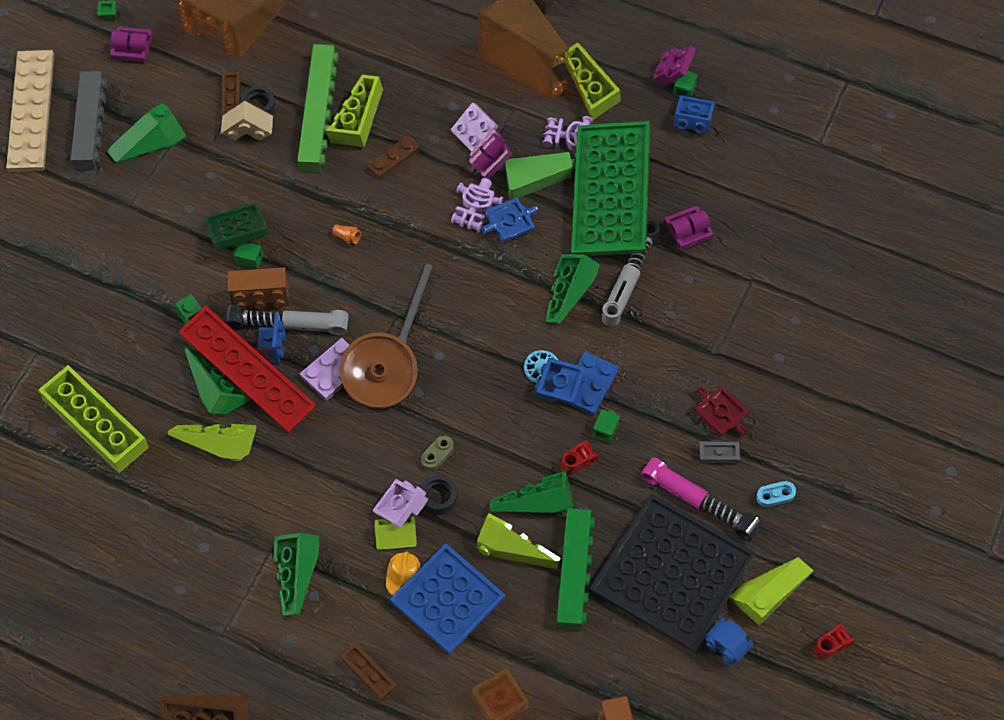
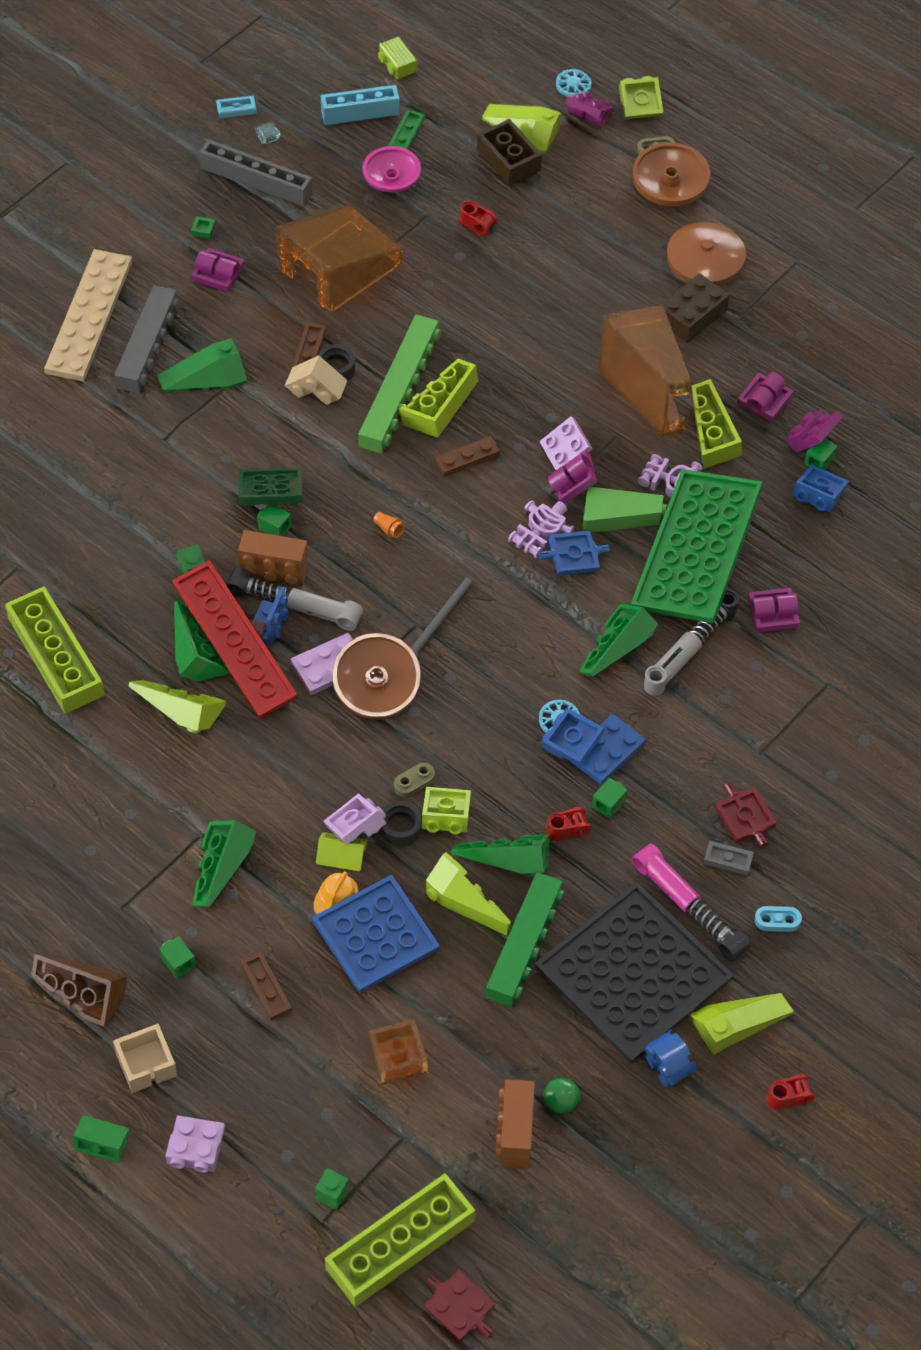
camera: 15 degrees right, 5 degrees down
(284, 666) = (177, 957): none -> green brick
(473, 473) = (446, 810): none -> lime plate
(624, 45) = (766, 395): none -> magenta plate
(647, 698) = (561, 1095): none -> green hair

